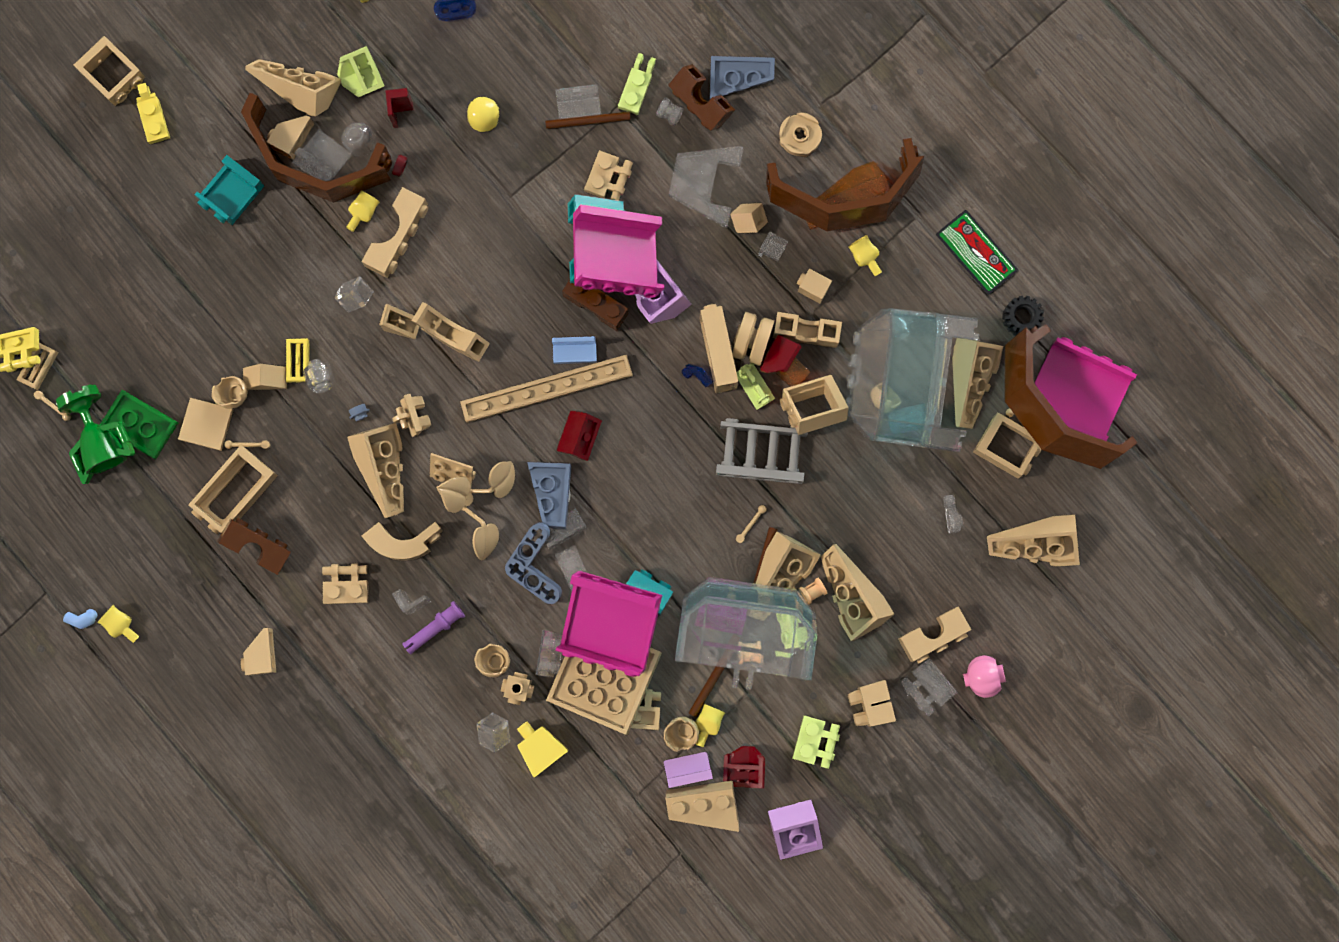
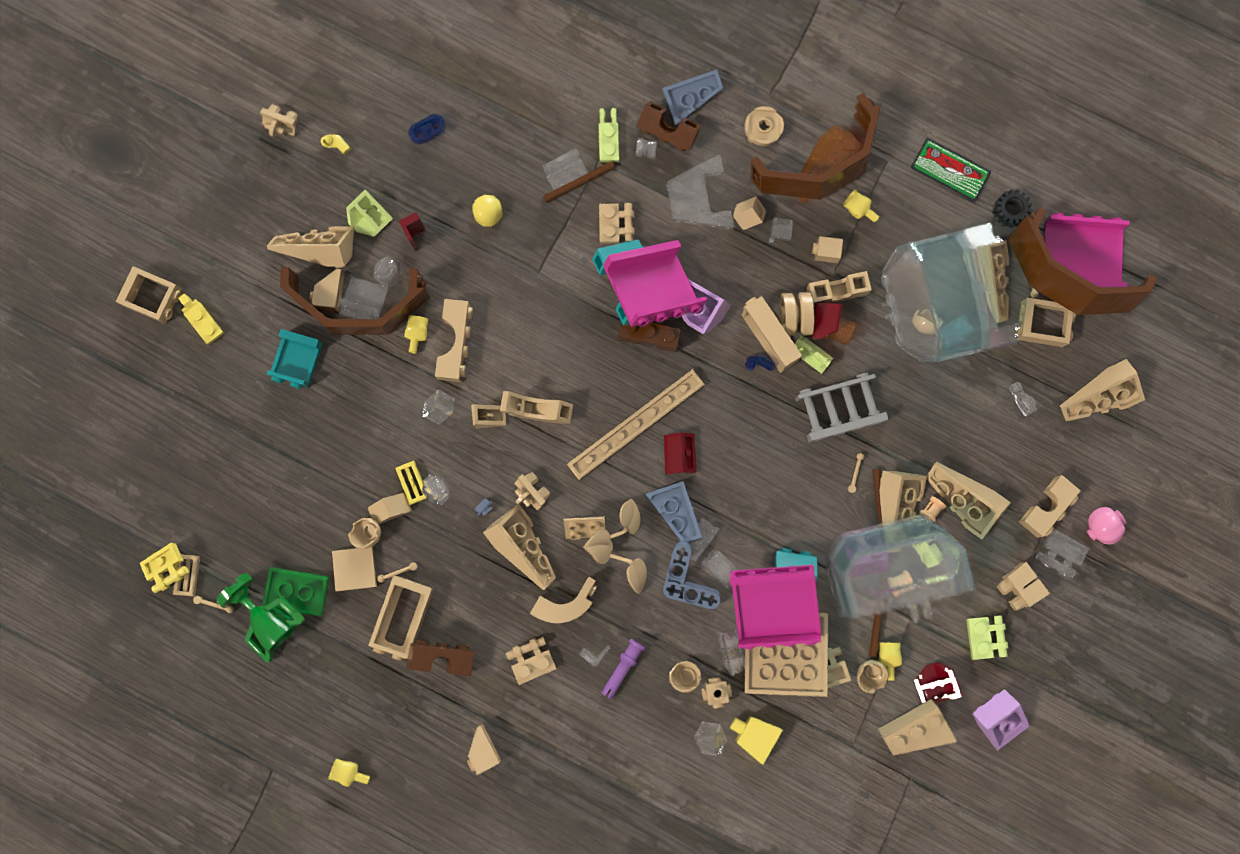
camera: 20 degrees left, 0 degrees up
(81, 621) = (314, 783): light blue arm -> none
(399, 166) = (433, 281): dark red tile -> none
(574, 350) = (647, 382): light blue panel -> none
(687, 769) = (889, 705): lavender panel -> none
(813, 388) = (883, 337): tan window -> none

